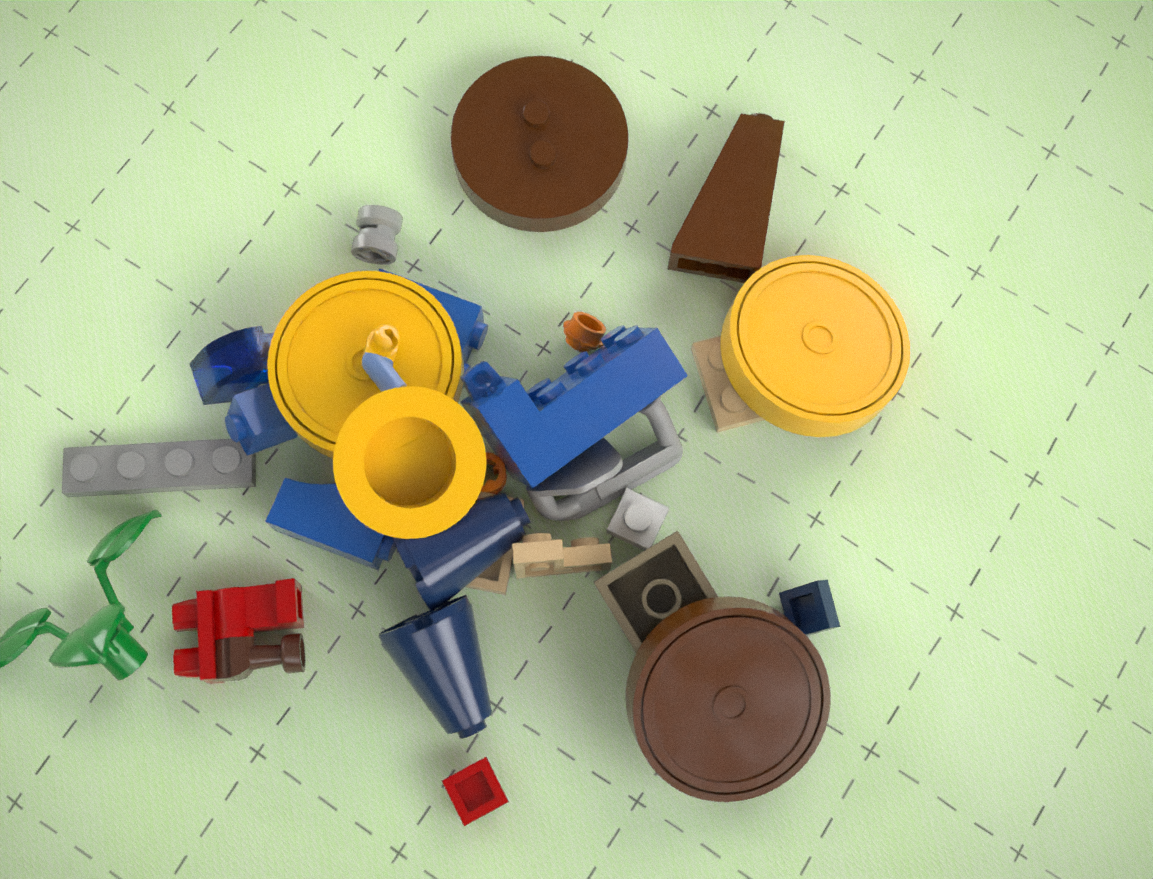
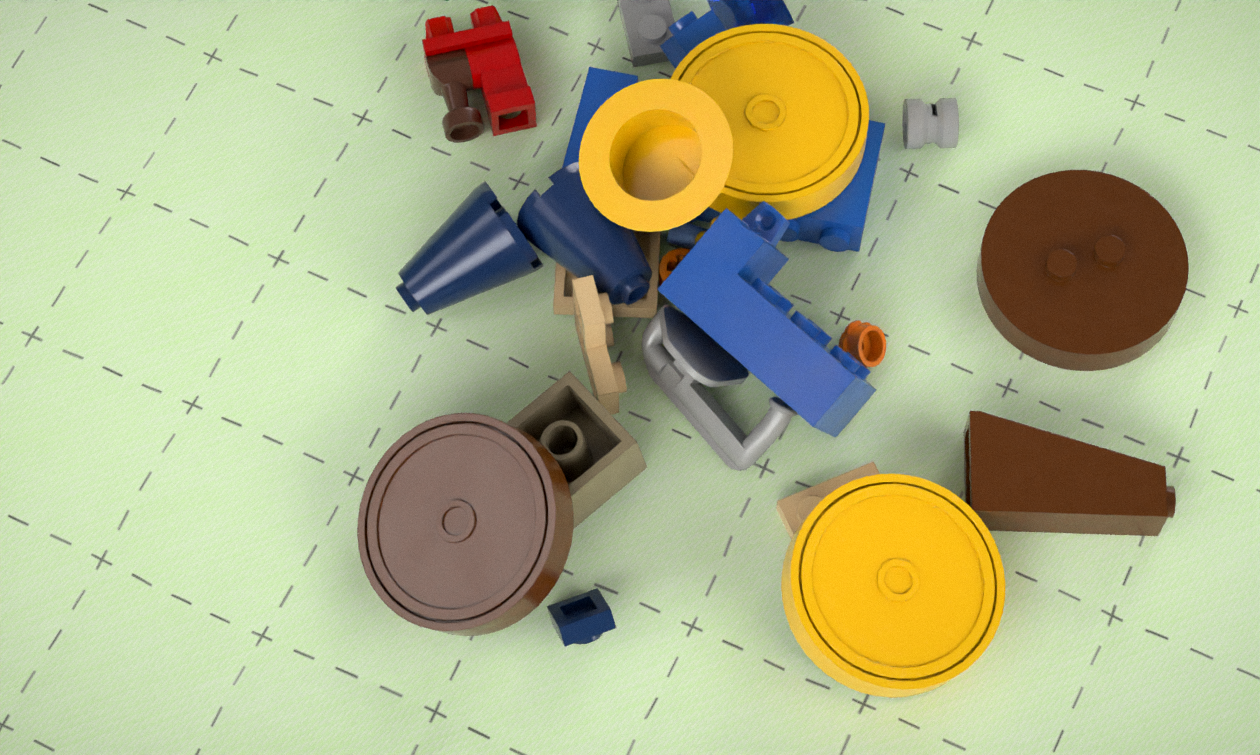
camera: 85 degrees right, 10 degrees down
(380, 357) = (767, 119): arm -> none
(475, 791) = (344, 311): red plate -> none
(637, 520) = (659, 432): white plate -> none

